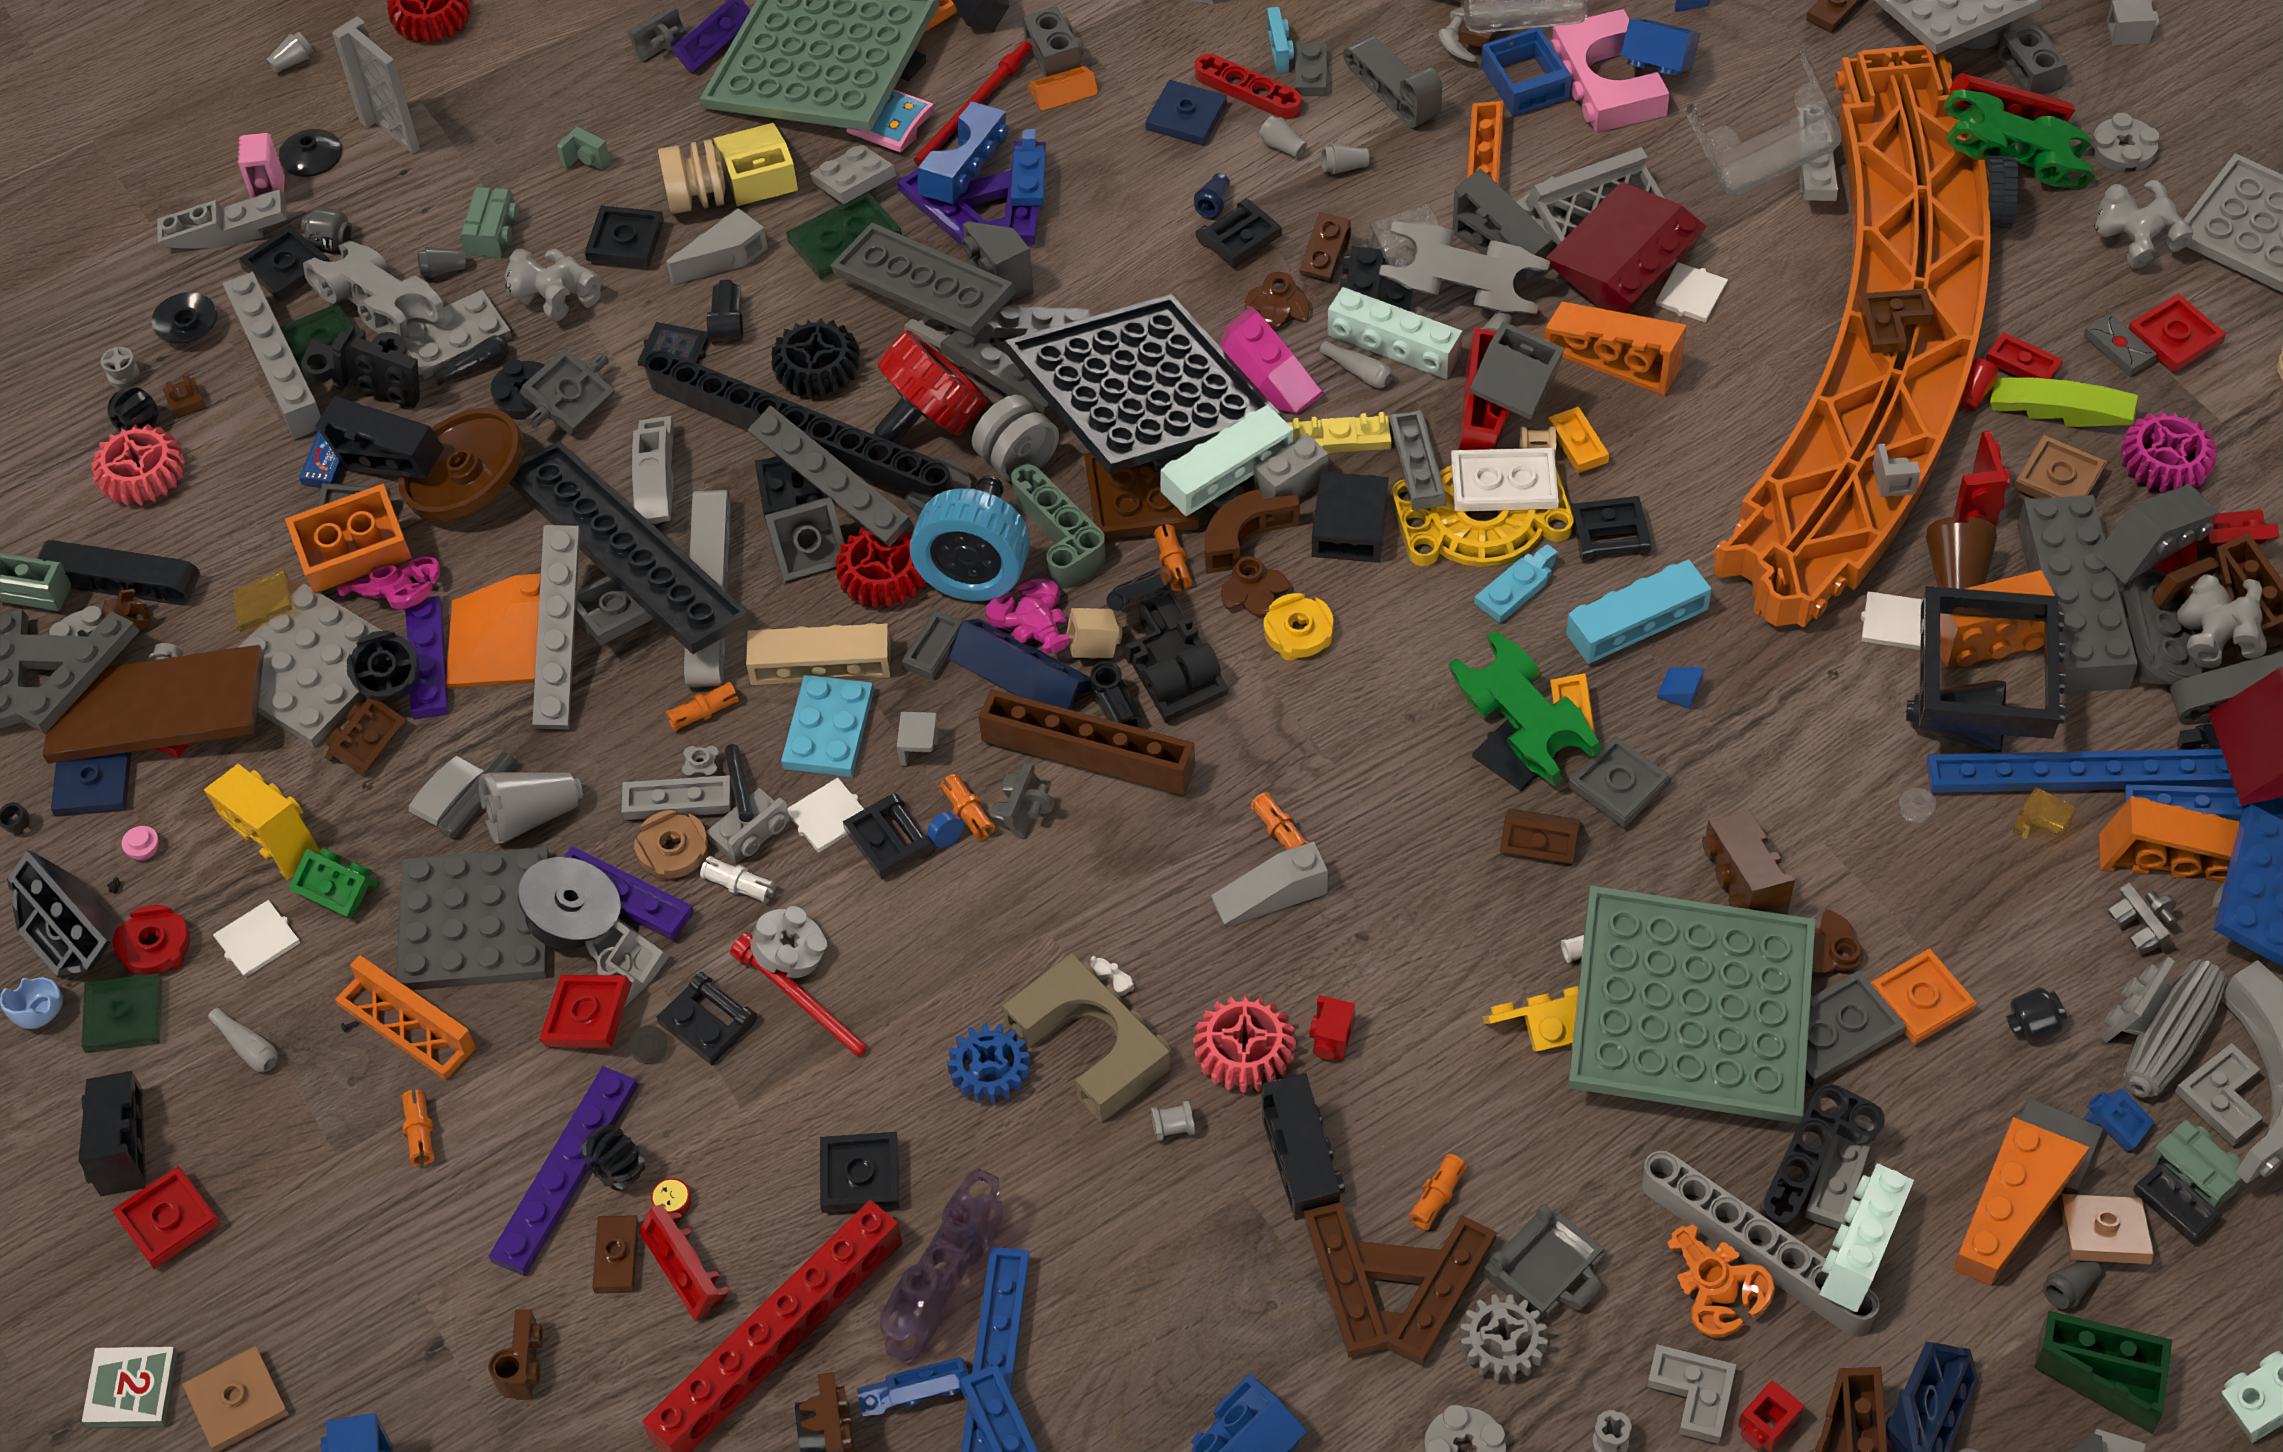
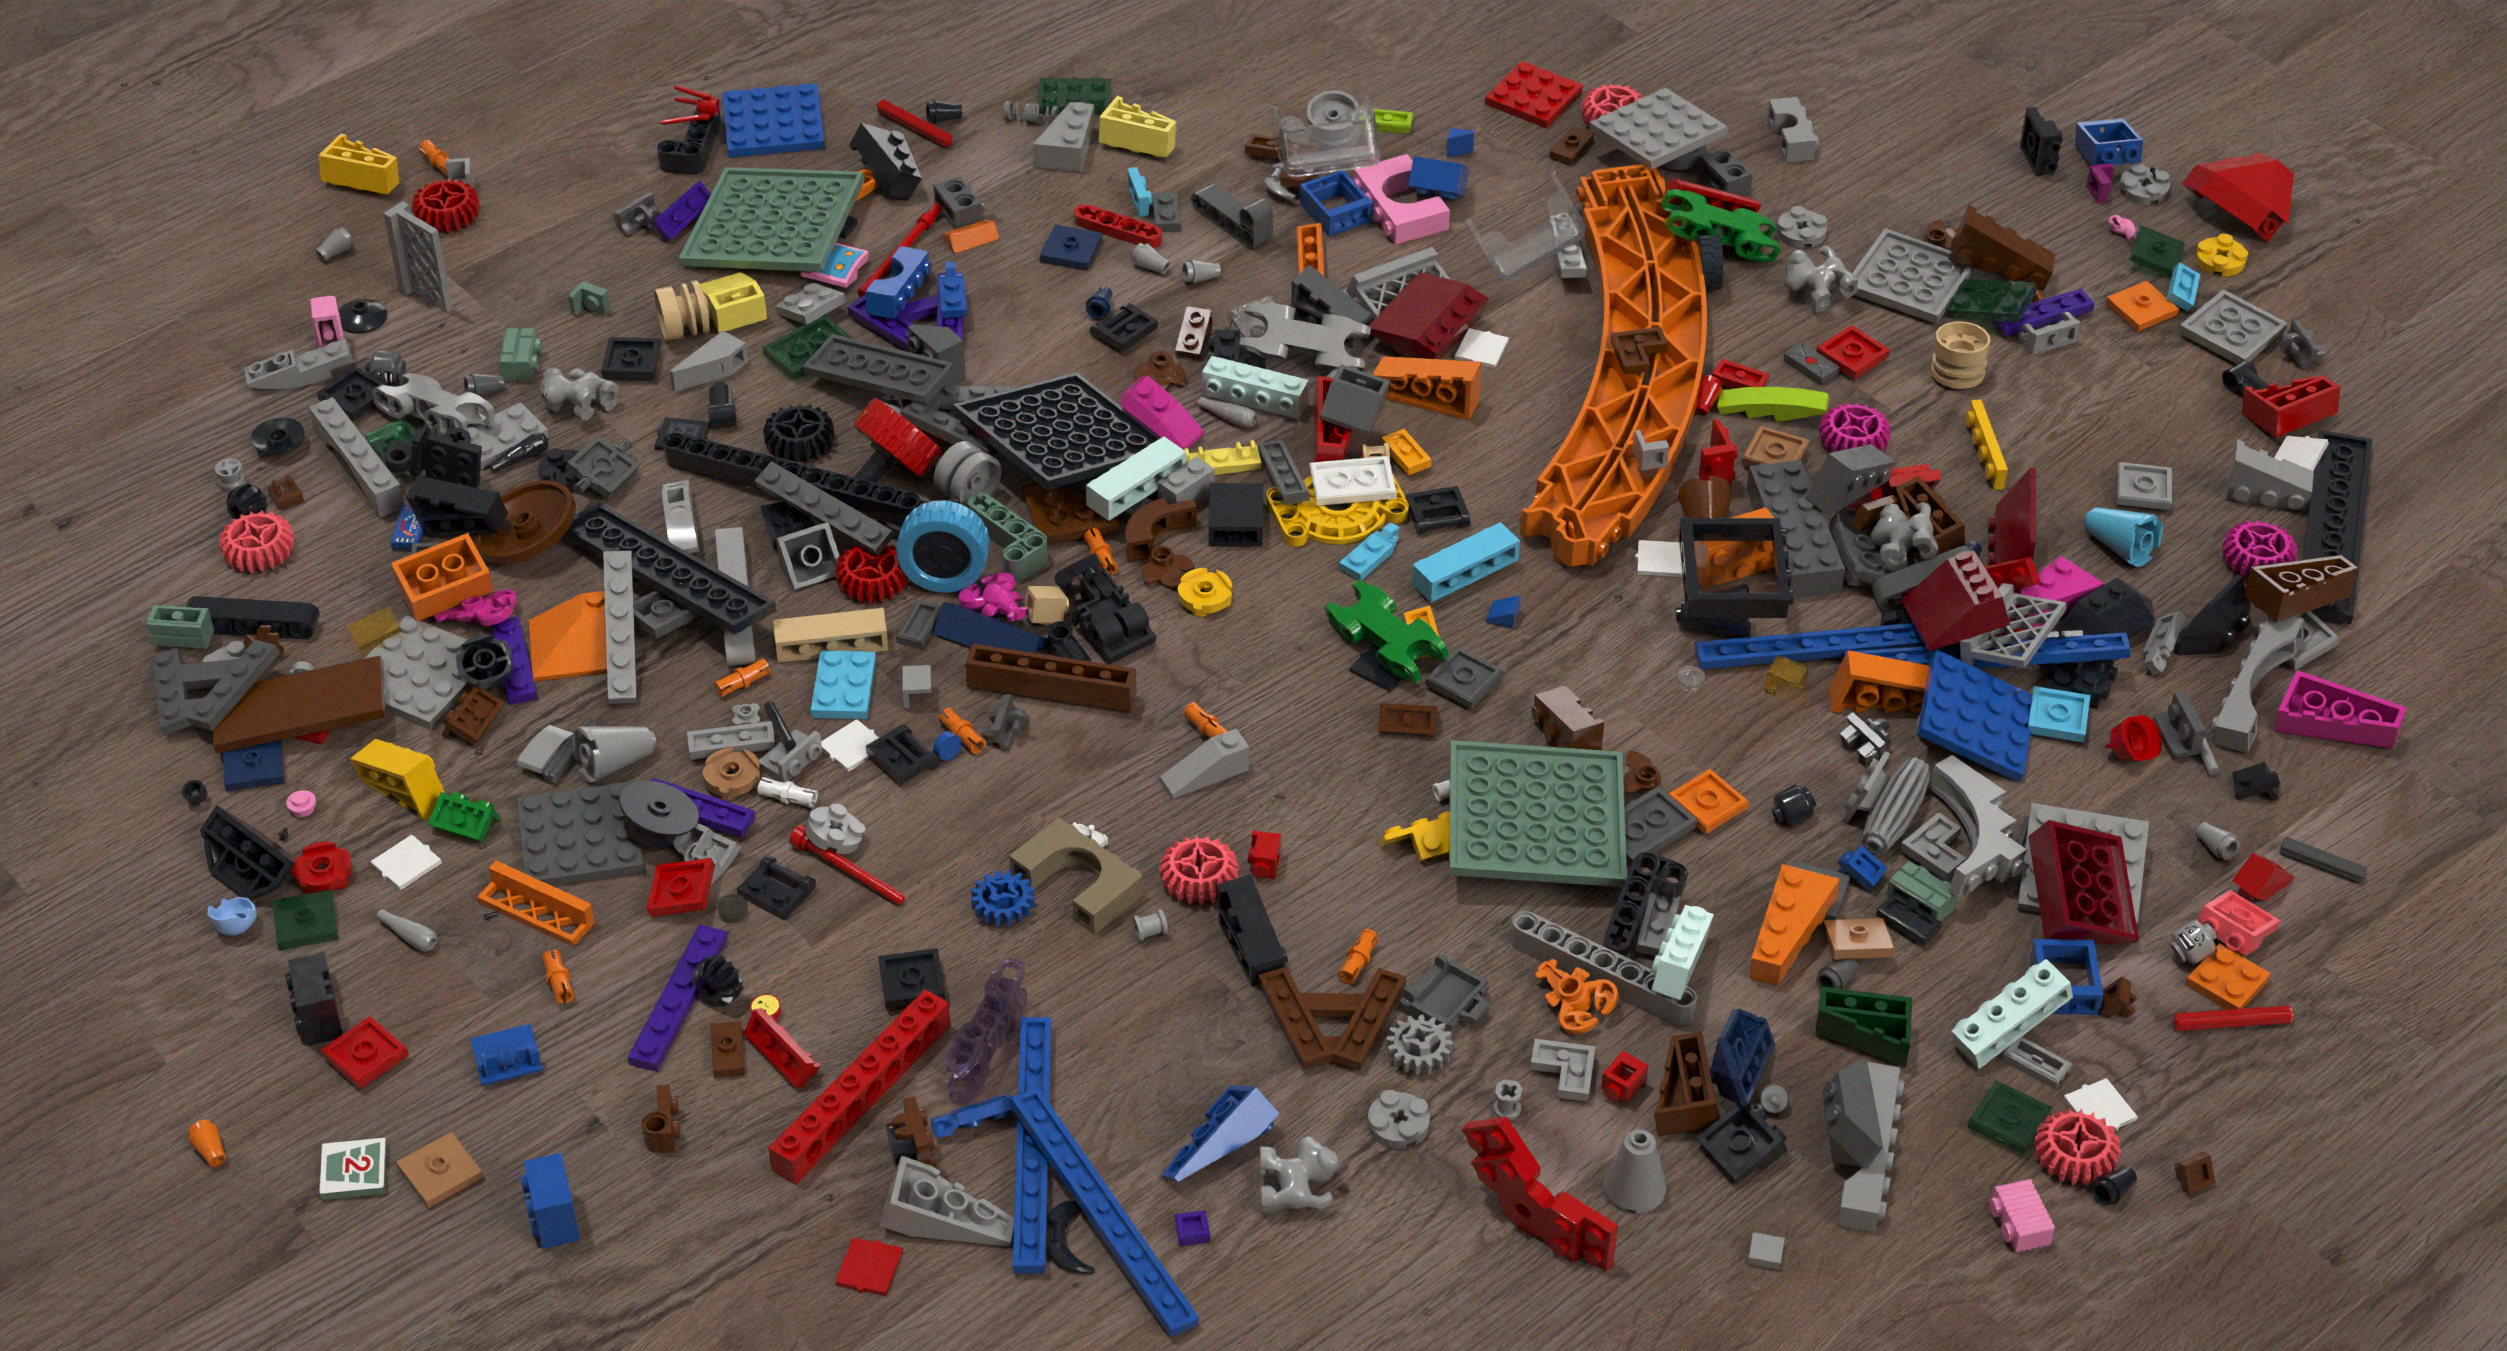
camera: 10 degrees left, 10 degrees down
(339, 1235) = (506, 1054): none -> blue hinge

